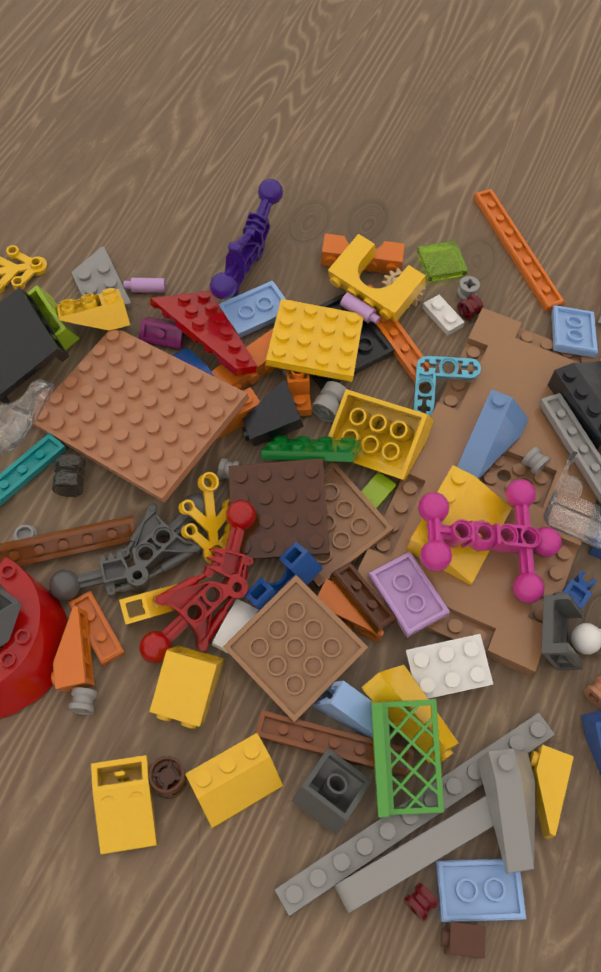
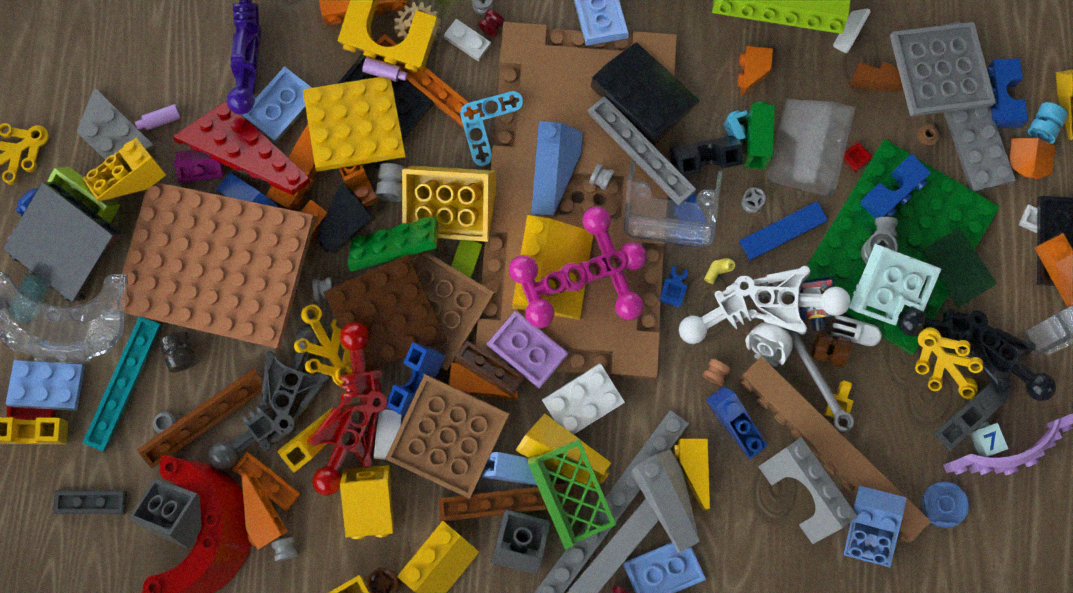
camera: 20 degrees left, 15 degrees up
(556, 614) = (665, 335): dark grey panel -> none

